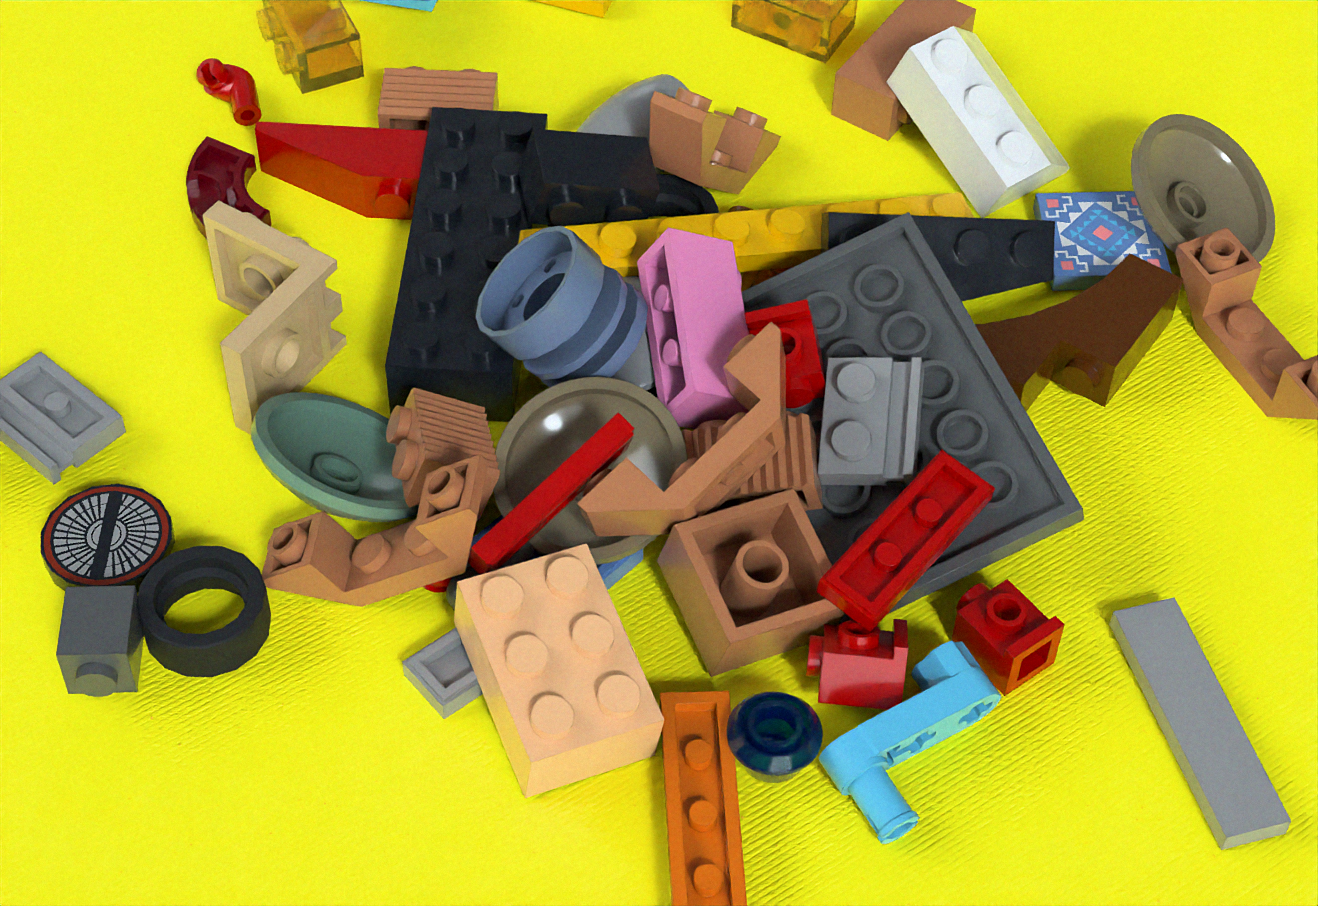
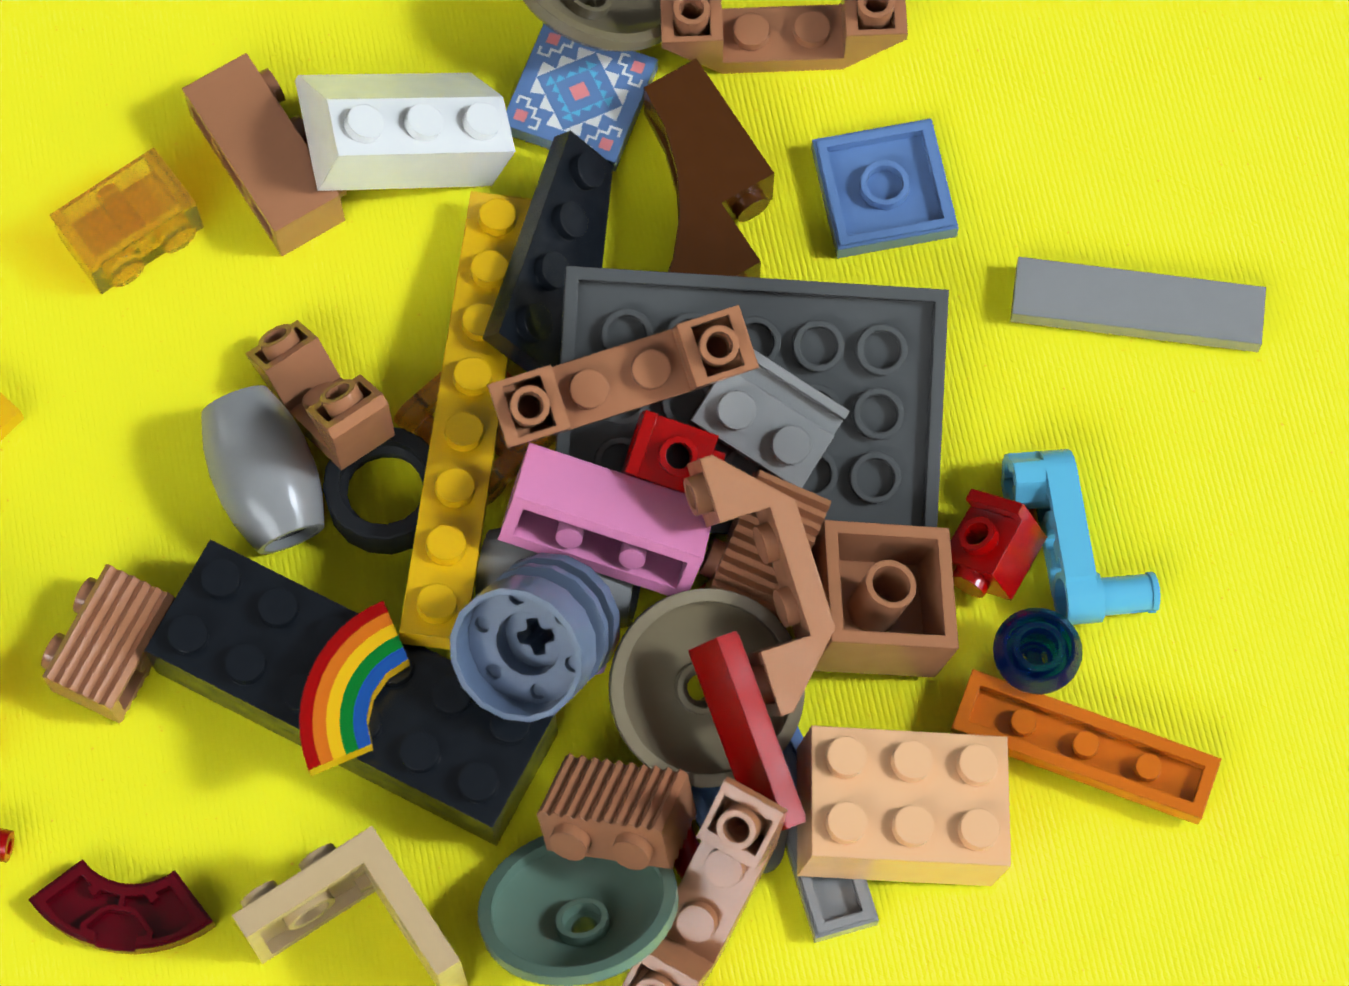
camera: 65 degrees left, 20 degrees up
(350, 166) = (165, 756): red slope -> none
(455, 217) = (344, 686): none -> tile
(587, 178) = (351, 539): black brick -> none
(798, 267) = (623, 377): none -> nougat slope
(905, 540) = (915, 450): red tile -> none
(1006, 634) = (996, 433): red brick -> none
(1172, 479) = (884, 188): none -> medium blue tile

